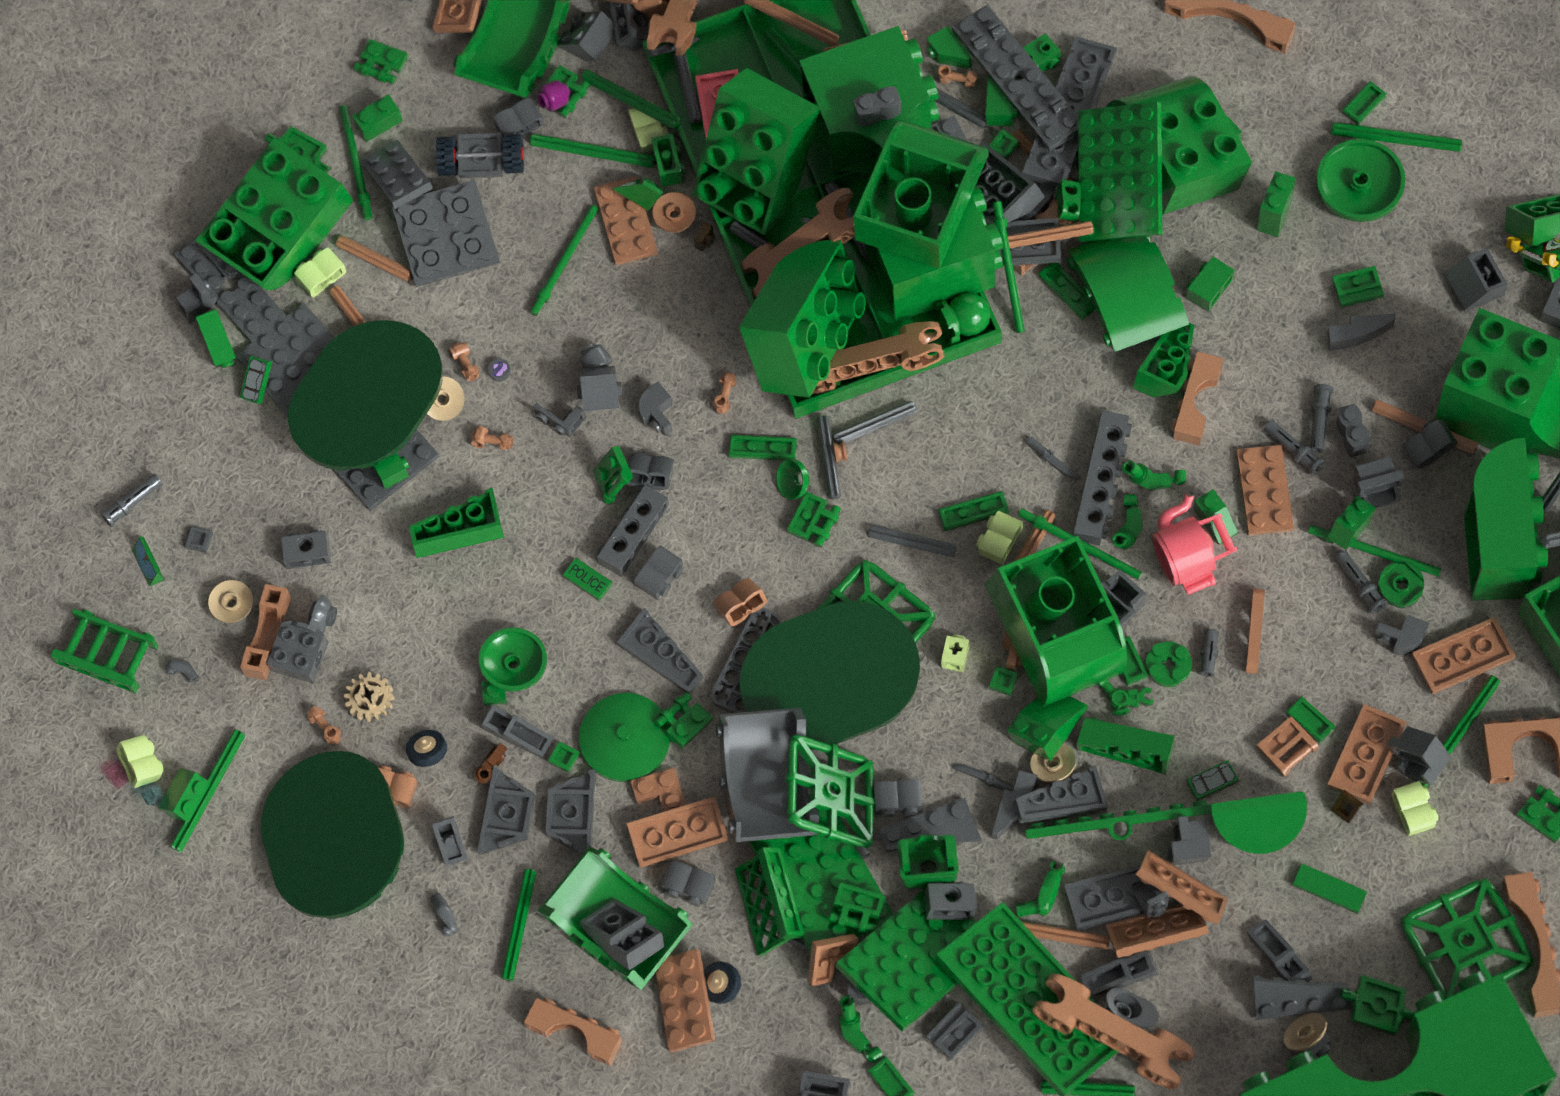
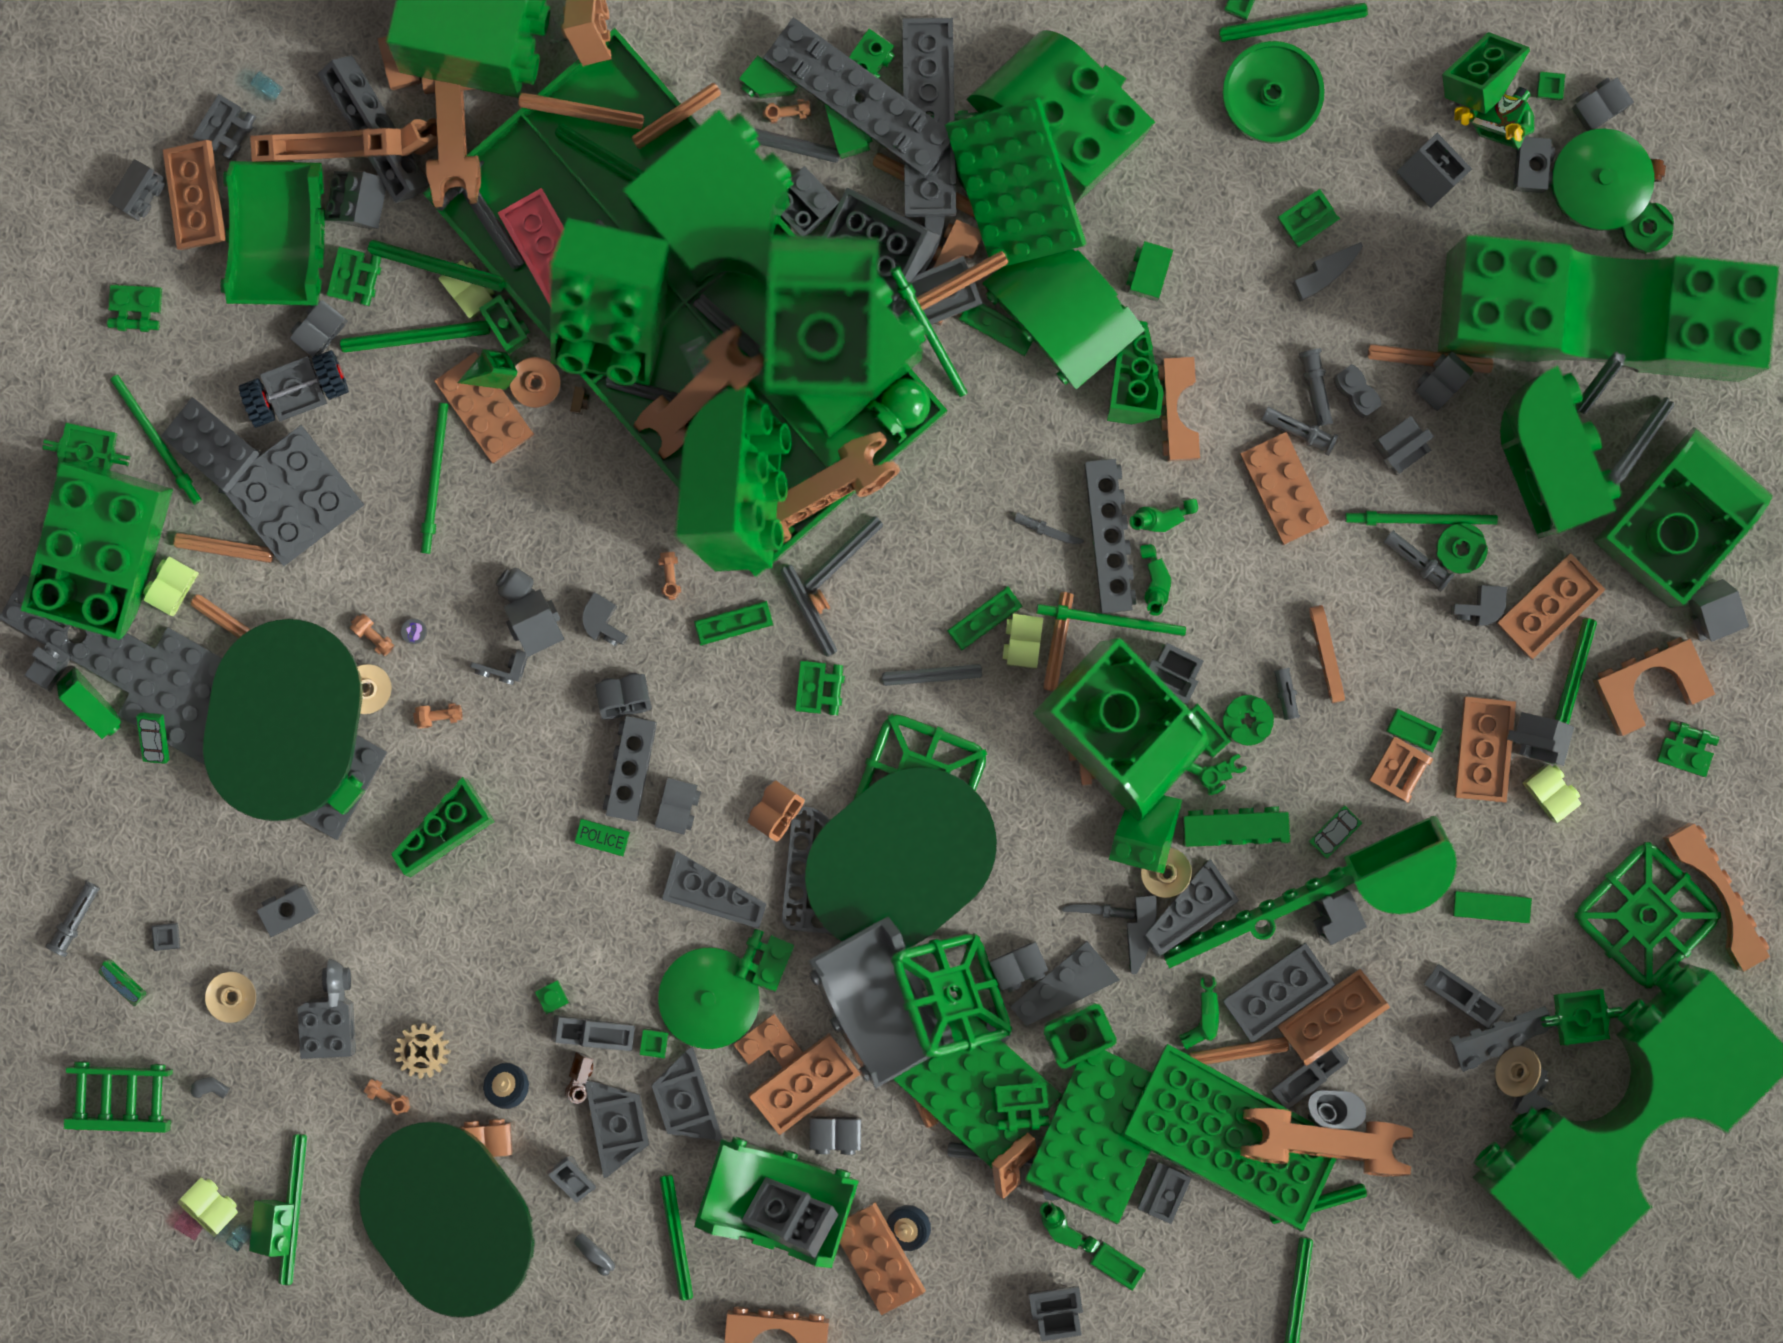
camera: 25 degrees left, 20 degrees up
(272, 613) = (283, 1004): nougat arch -> none
(377, 118) = (159, 381): green brick -> none
(510, 647) = (541, 955): green dish -> none
(553, 95) = (347, 291): magenta head -> none
(607, 471) = (580, 710): green plate -> none
(779, 898) = (936, 1122): green fence -> none
(788, 481) = (778, 656): green piece -> none
(872, 107) = (740, 218): dark grey brick -> none
(940, 908) = (1129, 1059): dark grey brick -> none
(952, 661) = (1031, 792): yellowish green brick -> none
(1003, 680) = (1083, 799): green plate -> none
(1004, 144) = (868, 177): green plate -> none
(1068, 203) = (968, 232): green leg -> none
(1151, 900) = (1320, 990): dark grey bracket -> none
(1182, 887) = (1346, 967): nougat plate -> none
(1187, 549) = (1229, 591): coral piece -> none
(1211, 505) = (1243, 540): green slope -> none
(1276, 204) = (1193, 155): green brick -> none
(1346, 806) = (1482, 815): dark brown plate -> none
(1351, 523) = (1391, 501): green brick -> none

